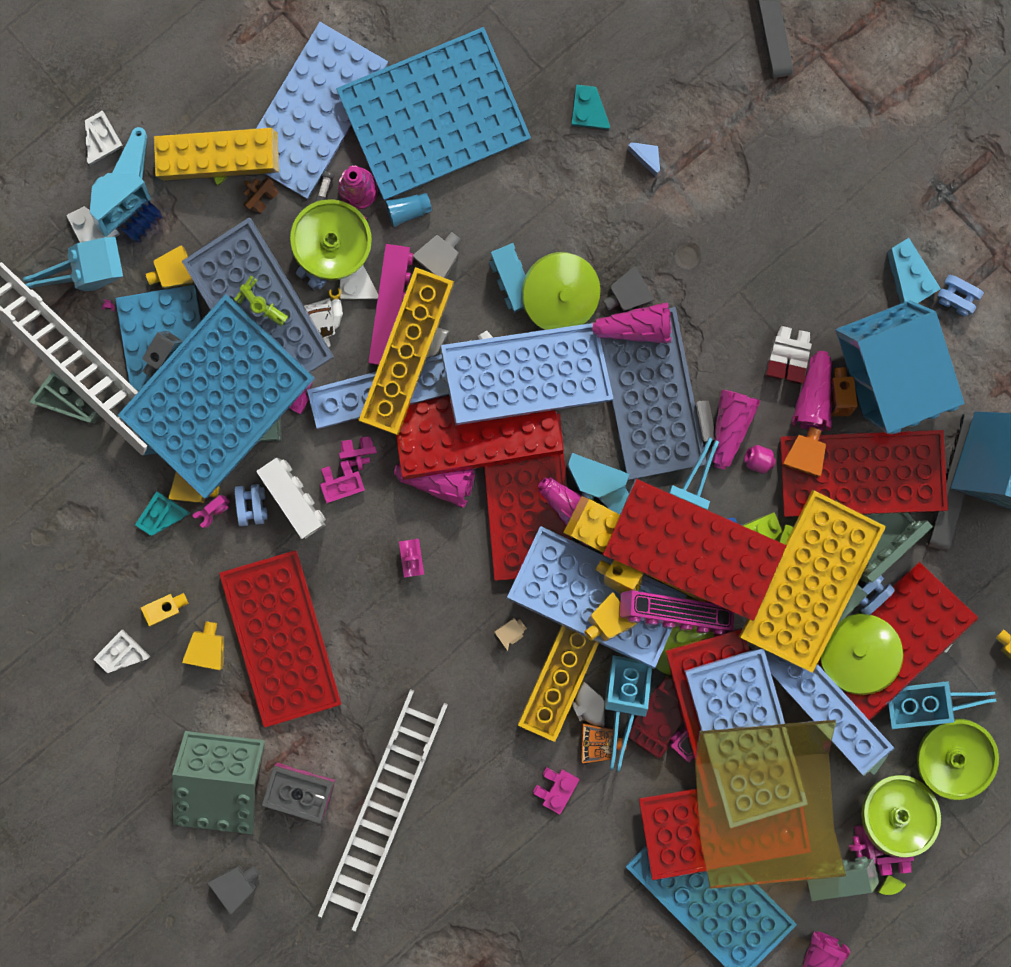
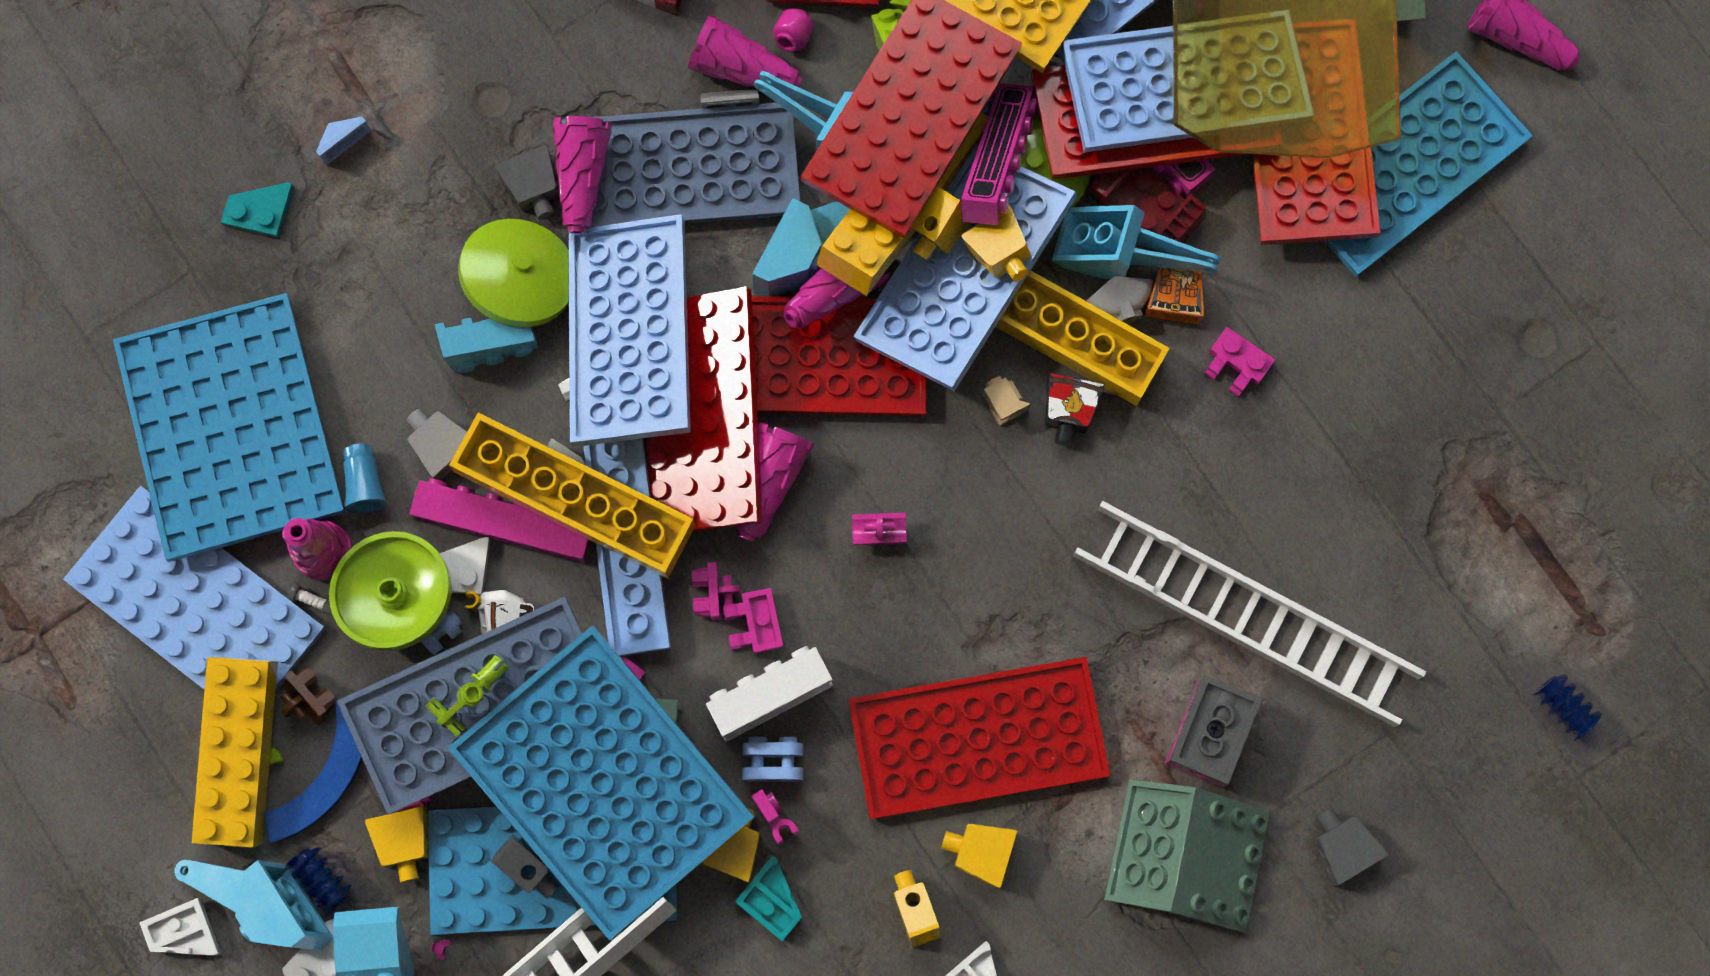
camera: 75 degrees left, 10 degrees down
(201, 216) = (323, 792): none -> blue tile
(511, 678) = (1070, 405): none -> torso

